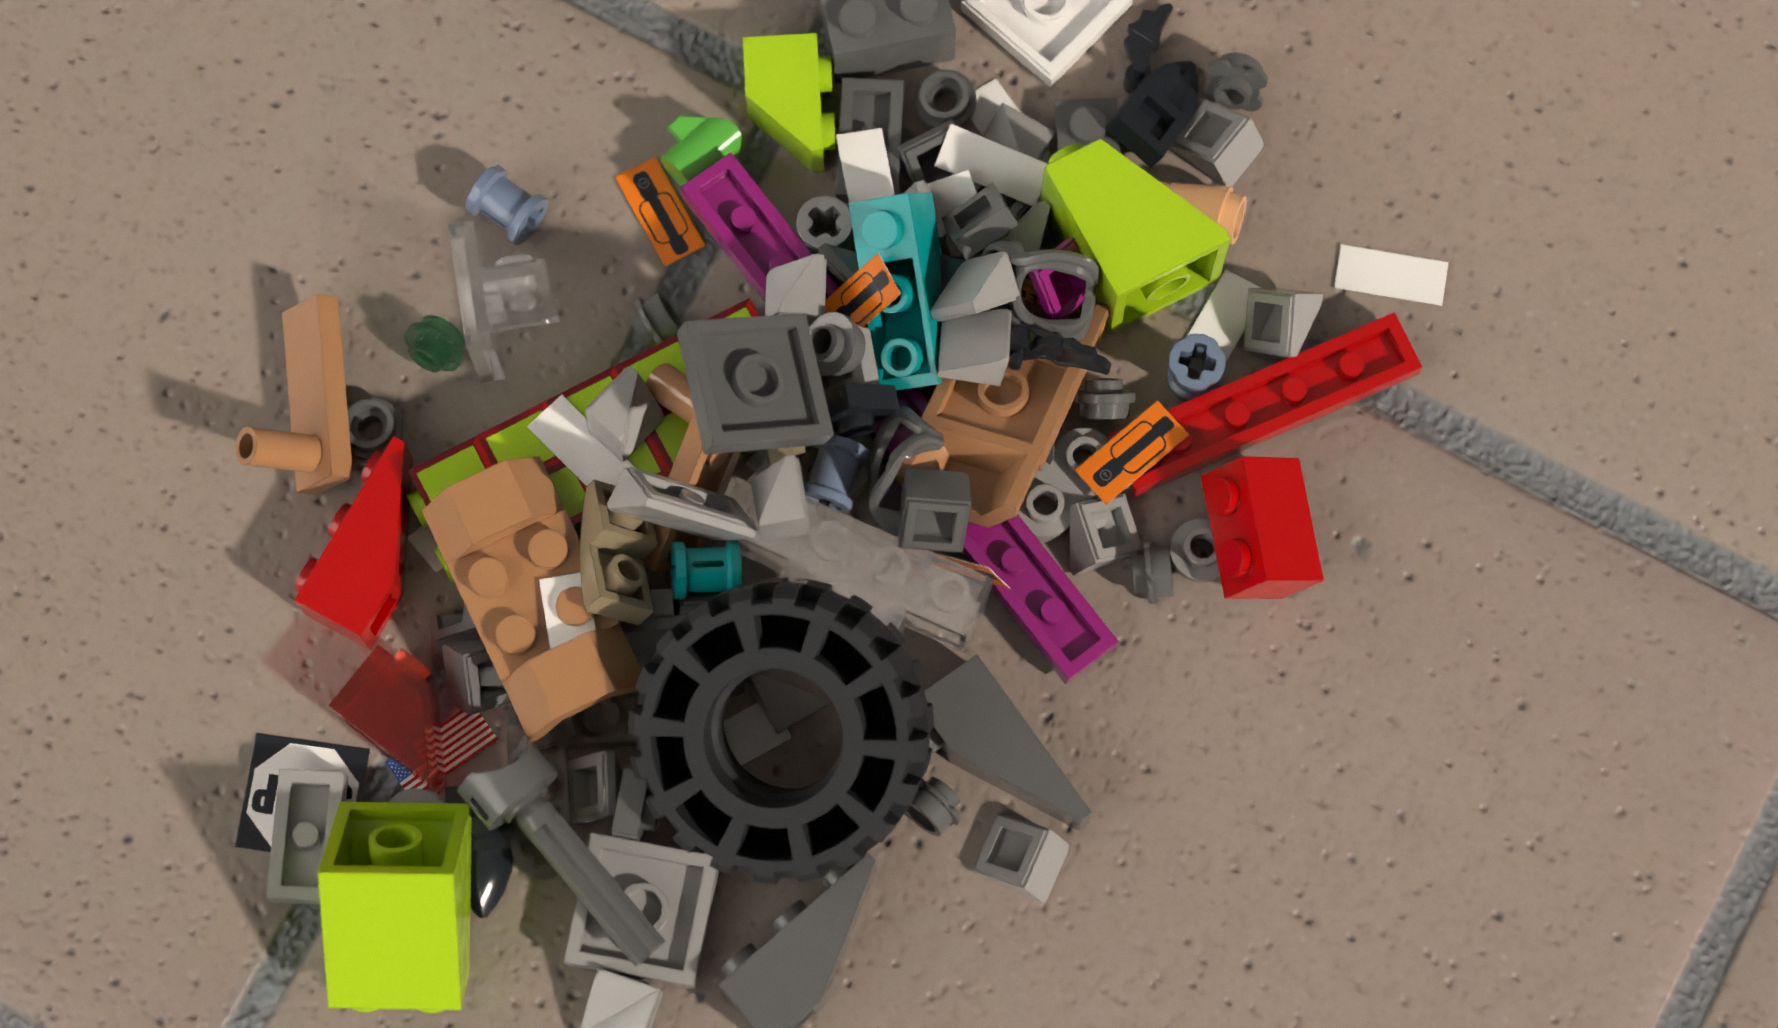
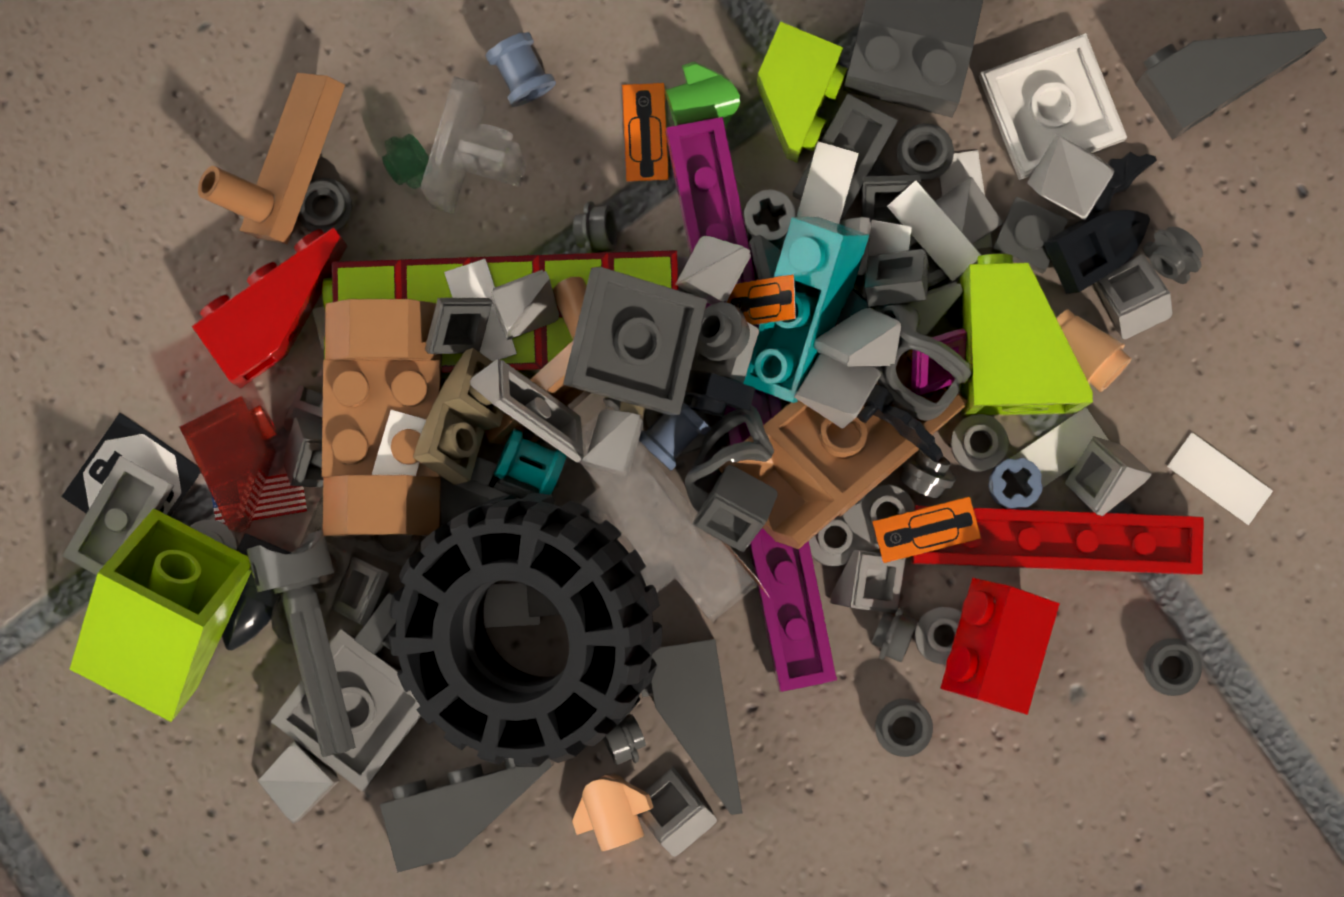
camera: 30 degrees right, 10 degrees up
(567, 462) = (458, 325): none -> dark grey slope
(957, 883) = (611, 810): none -> light nougat piece
(1099, 55) = (1071, 176): none -> light grey slope
(1140, 366) = (961, 443): none -> light grey plate
(1208, 640) = (922, 727): none -> dark grey plate
(1445, 455) = (1190, 667): none -> dark grey plate

